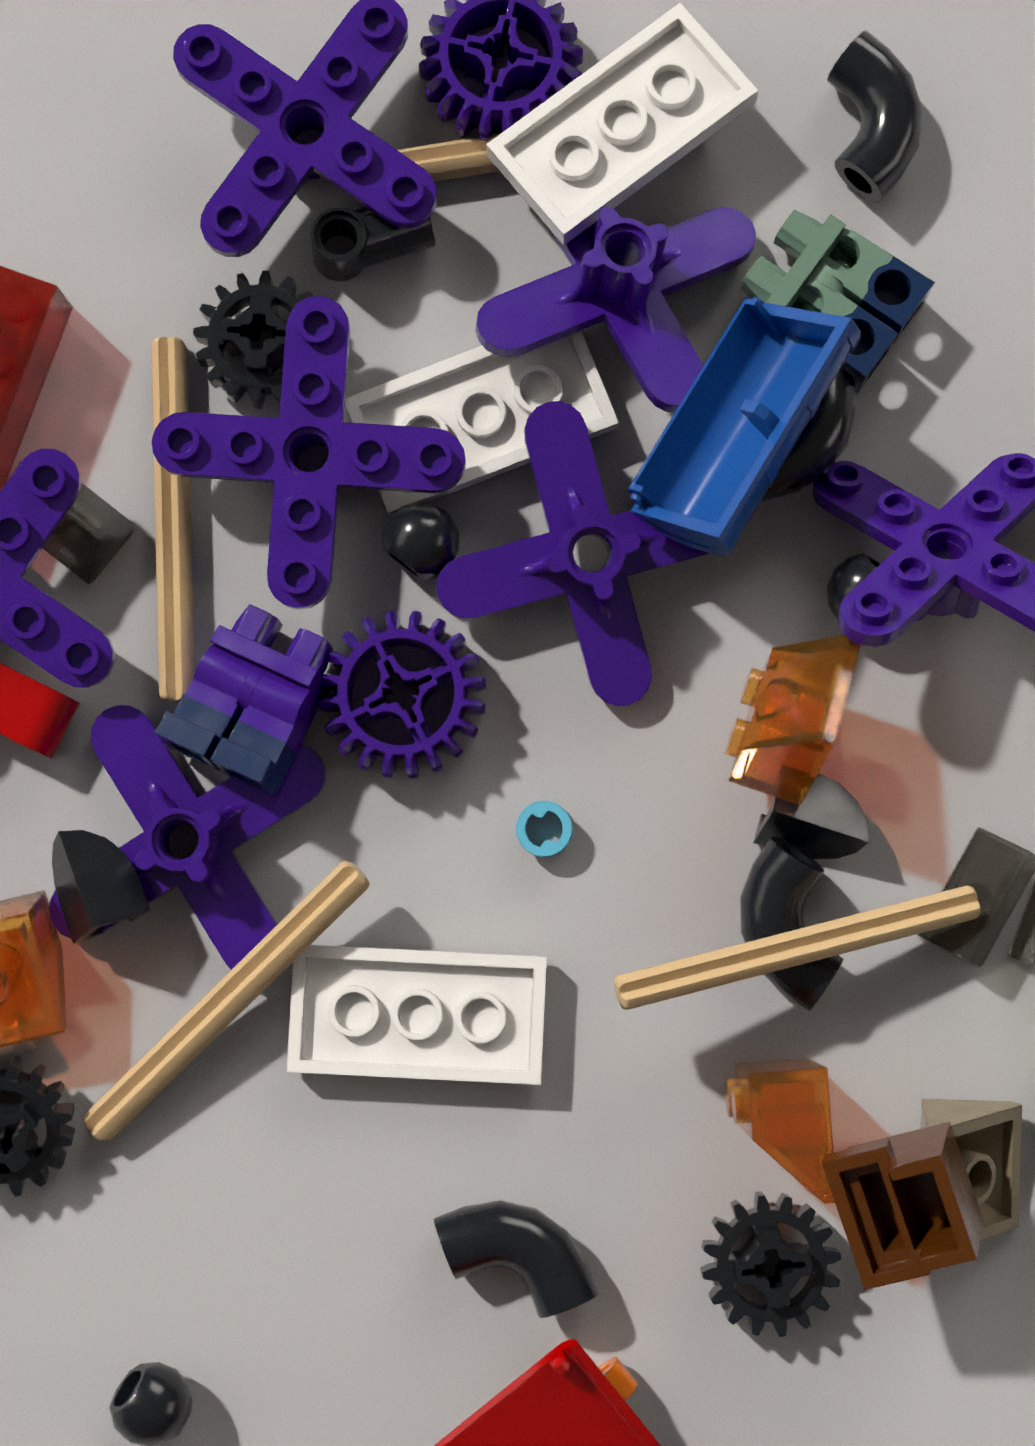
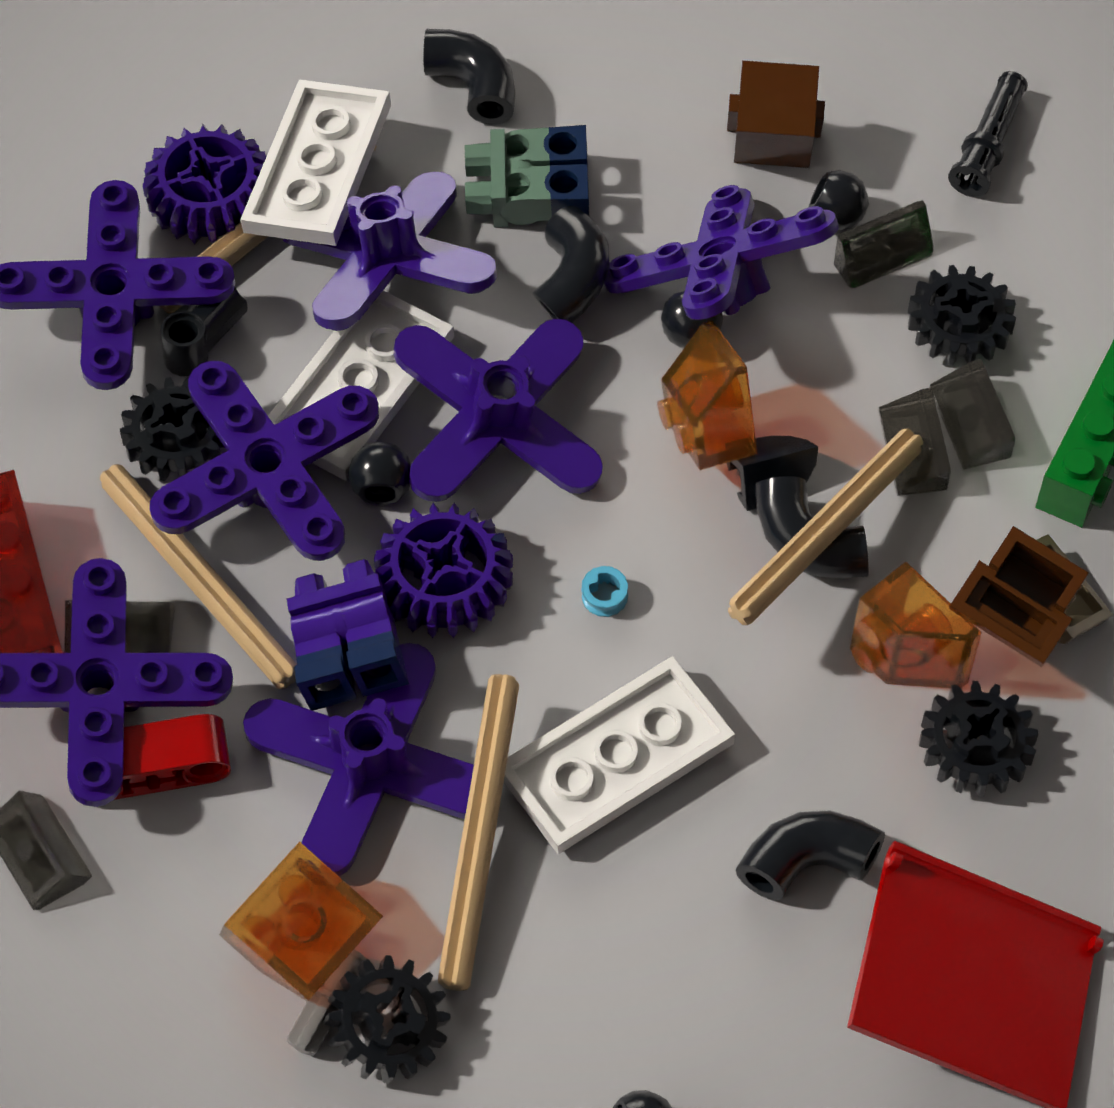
camera: 40 degrees left, 25 degrees down
(94, 883) = (326, 815): black brick -> none
(740, 423) = (535, 259): blue container -> none

